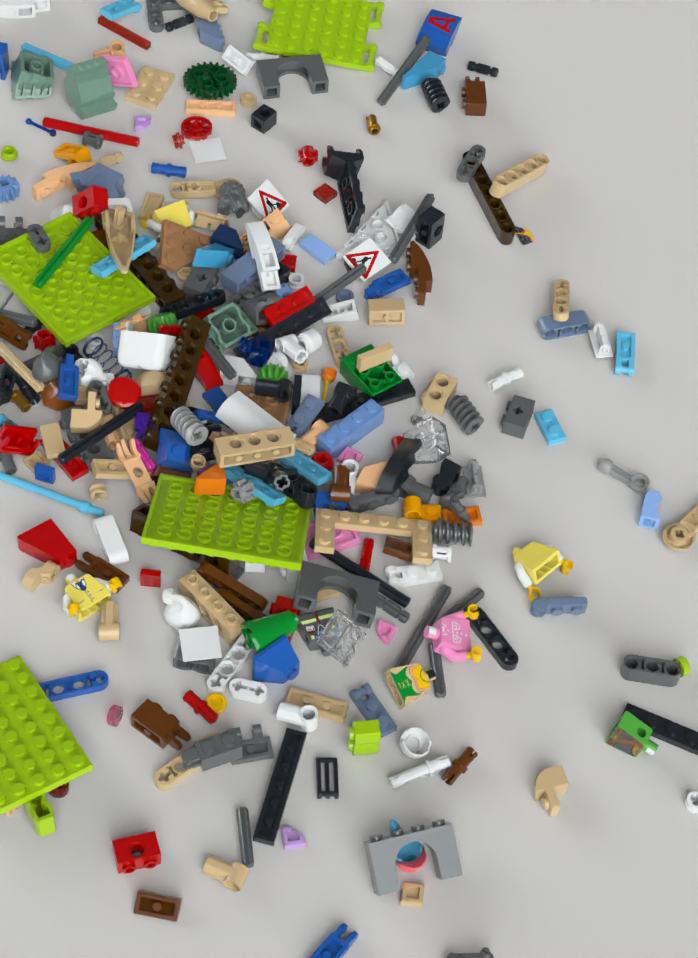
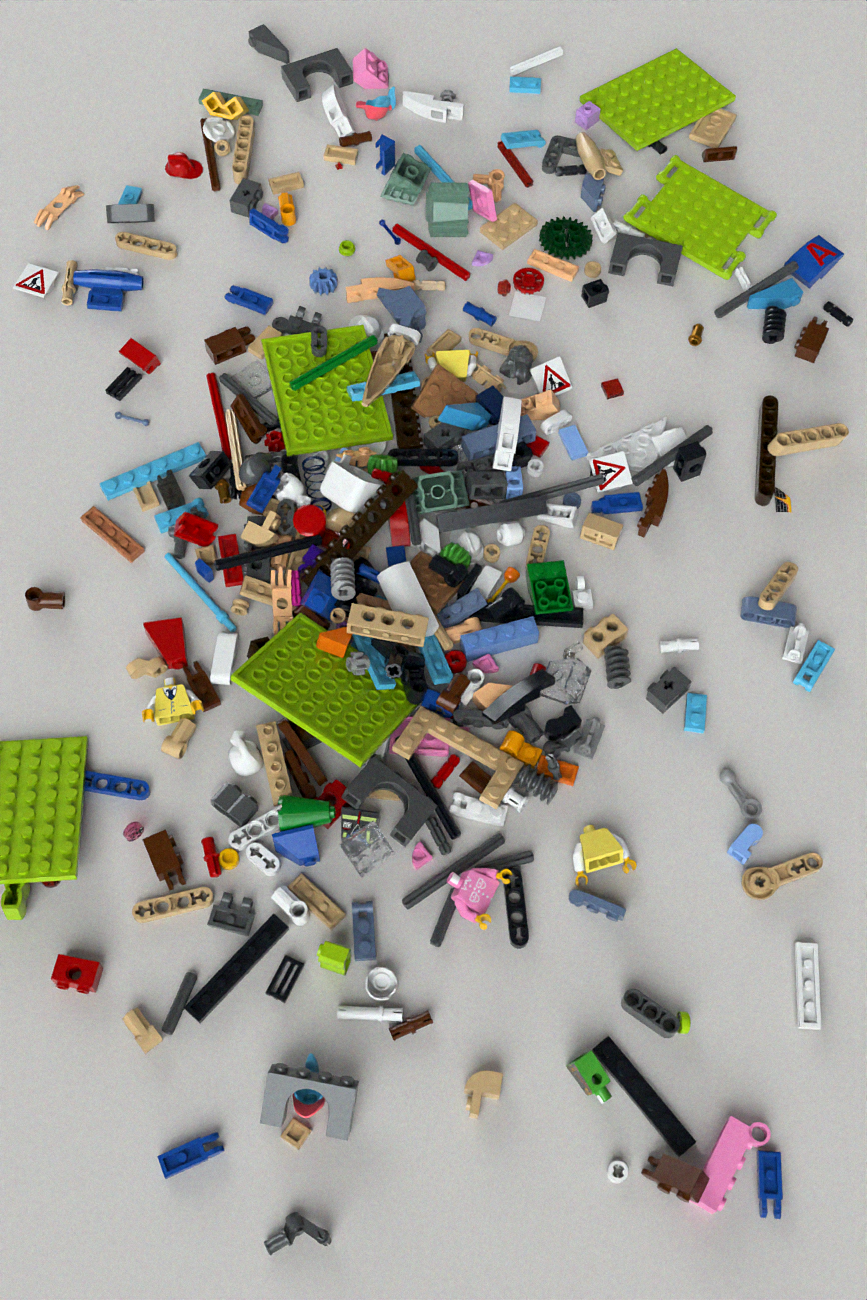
camera: 30 degrees right, 10 degrees up
(52, 440) = (226, 541): tan tile -> none
(90, 202) = (381, 323): red brick -> none
(150, 578) = (238, 710): red tile -> none
(157, 905) = (69, 1031): reddish brown slope -> none
(200, 643) = (241, 796): white sticker -> none
(214, 751) = (192, 909): dark grey hinge -> none
(257, 351) = (454, 526): clear blue brick -> none
(288, 306) = (507, 492): red plate -> none
(290, 345) = (489, 535): white piece -> none
(292, 839) = (220, 1024): lavender tile -> none
(307, 155) = (615, 345): red gear -> none
(345, 168) = (639, 370): black hinge -> none
(374, 357) = (554, 577): tan tile -> none
(408, 683) = (409, 921): torso -> none
(471, 169) = (762, 416): dark grey beam -> none

